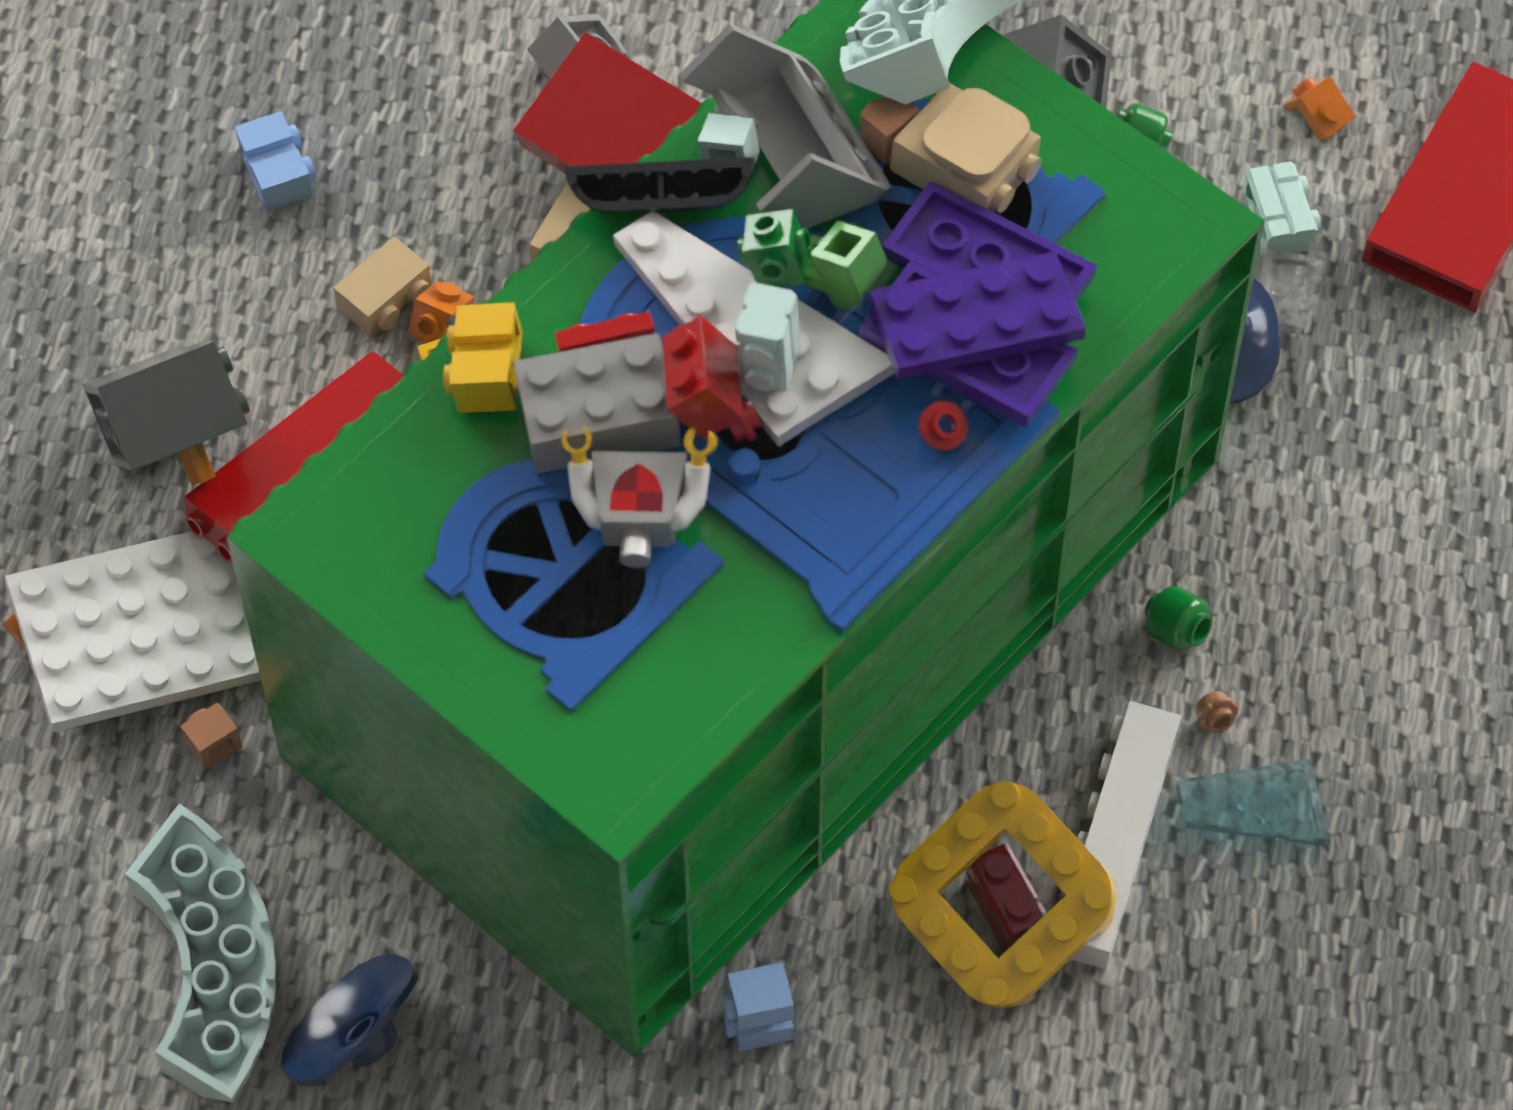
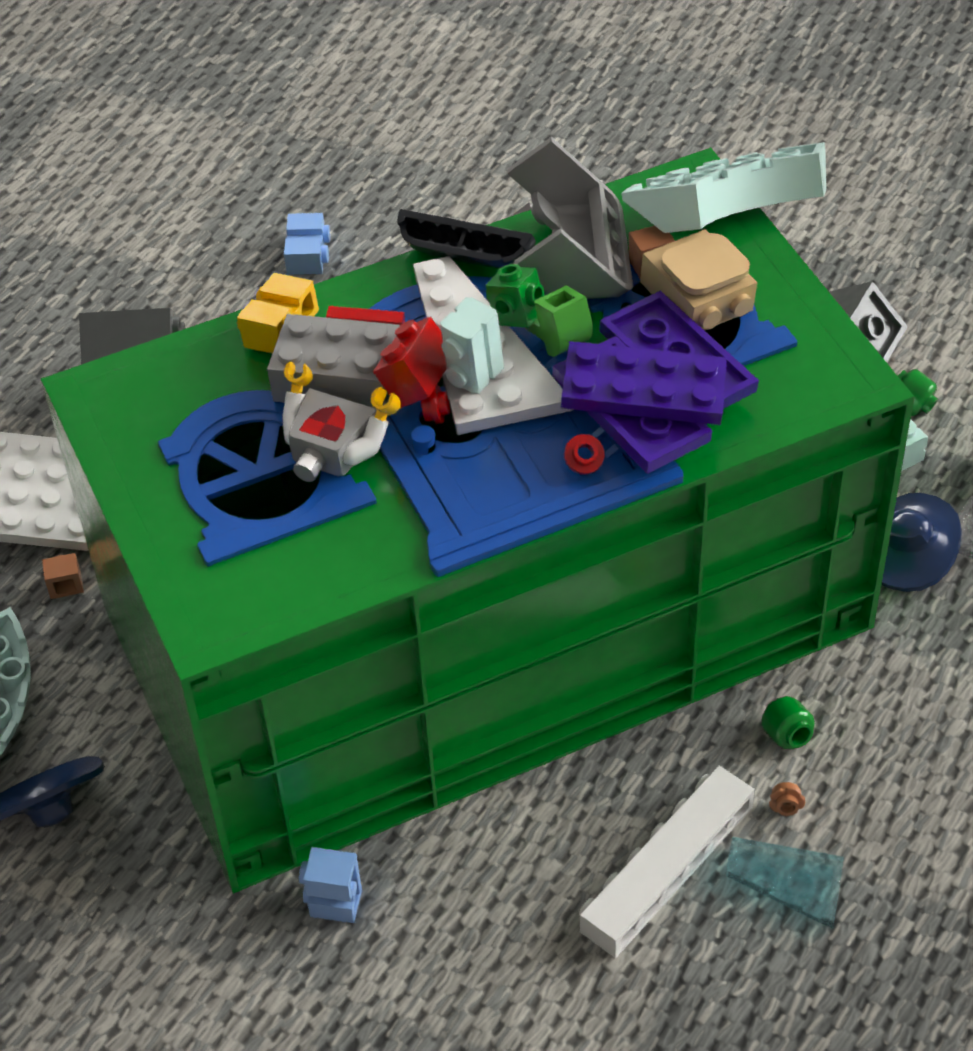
camera: 25 degrees right, 10 degrees down
(728, 137) = (529, 221): light aqua plate -> none
(1004, 894) = (559, 877): dark red brick -> none
(1046, 945) = (569, 917): yellow plate -> none

